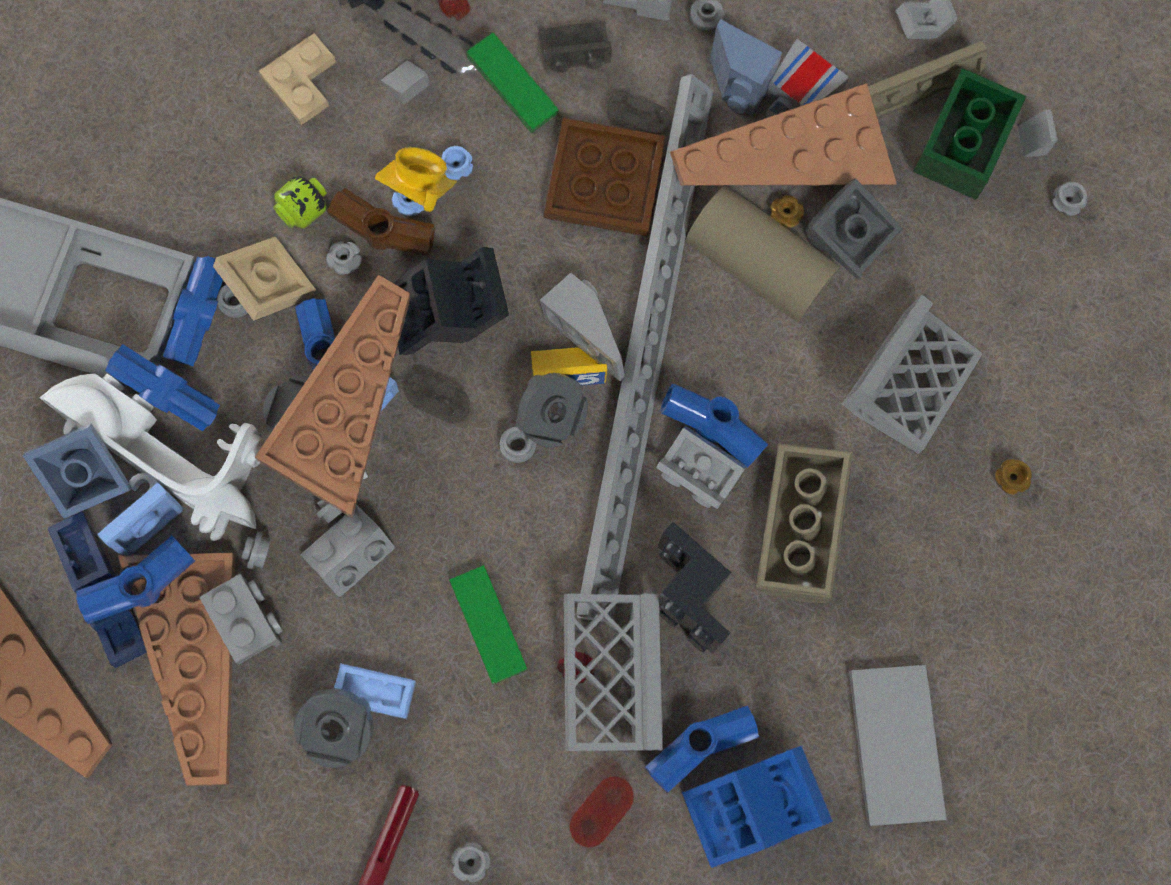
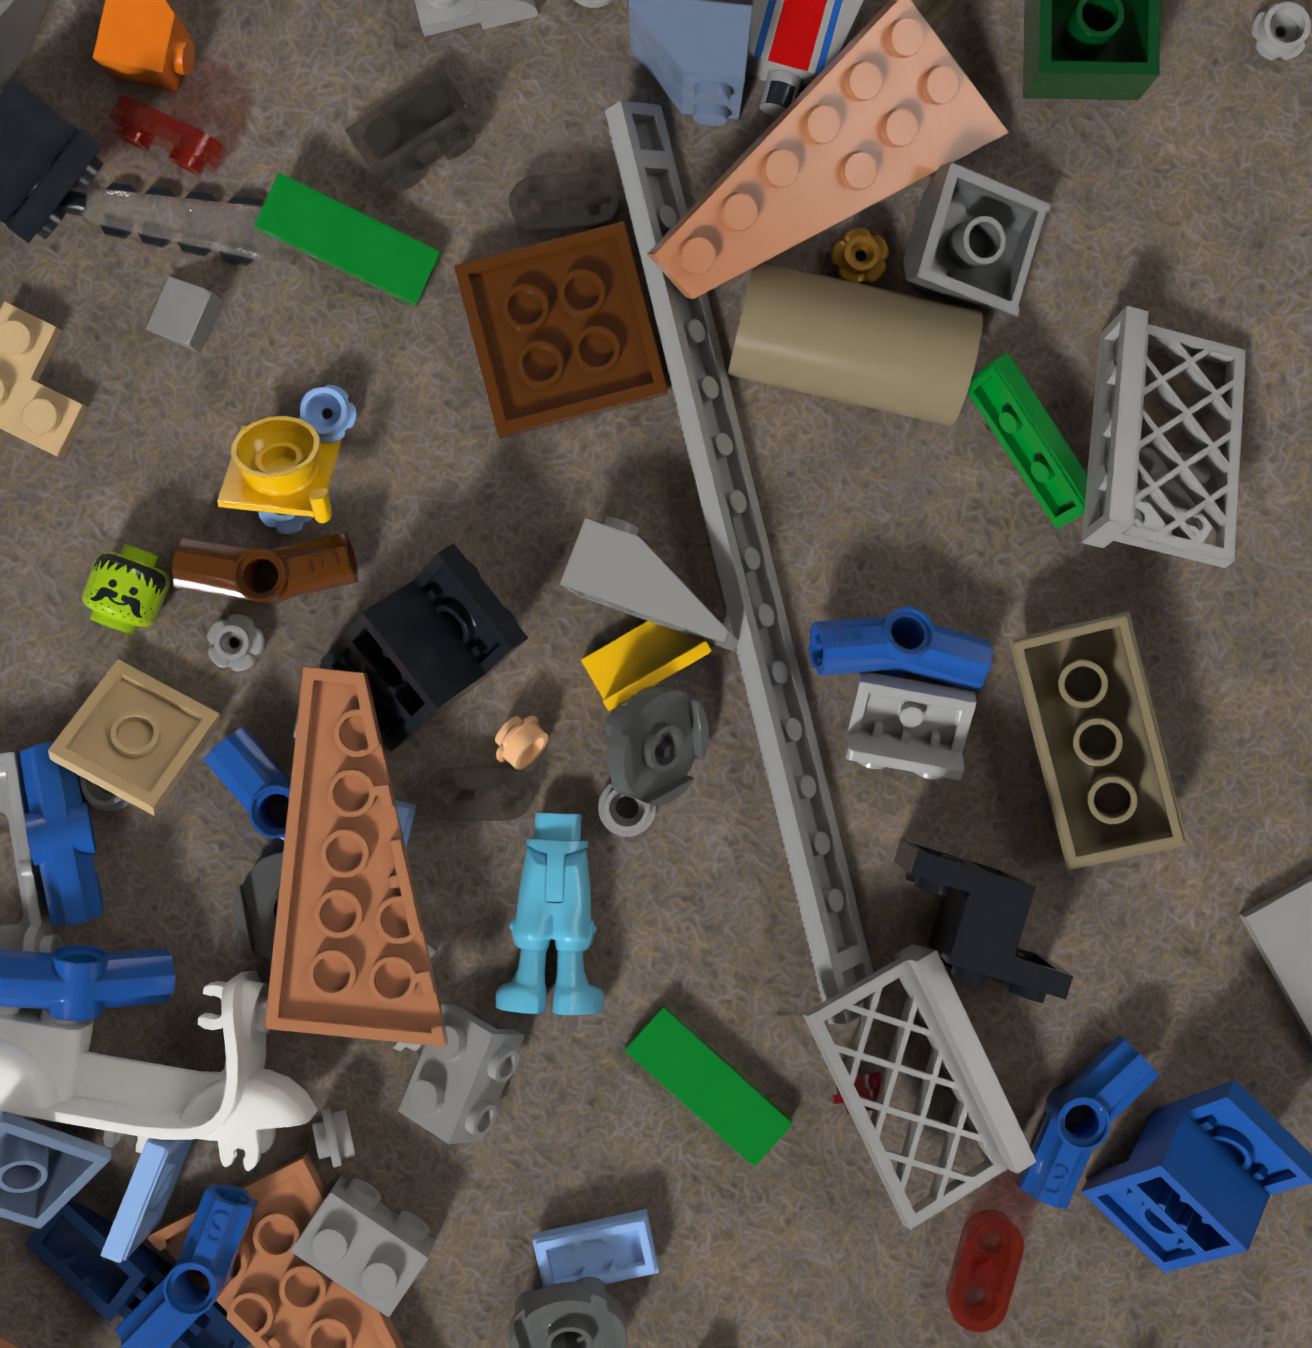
camera: 15 degrees left, 15 degrees up
(449, 476) = (554, 906): none -> medium azure piece
(475, 380) = (520, 741): none -> light nougat plate
(838, 344) = (1030, 439): none -> green tile

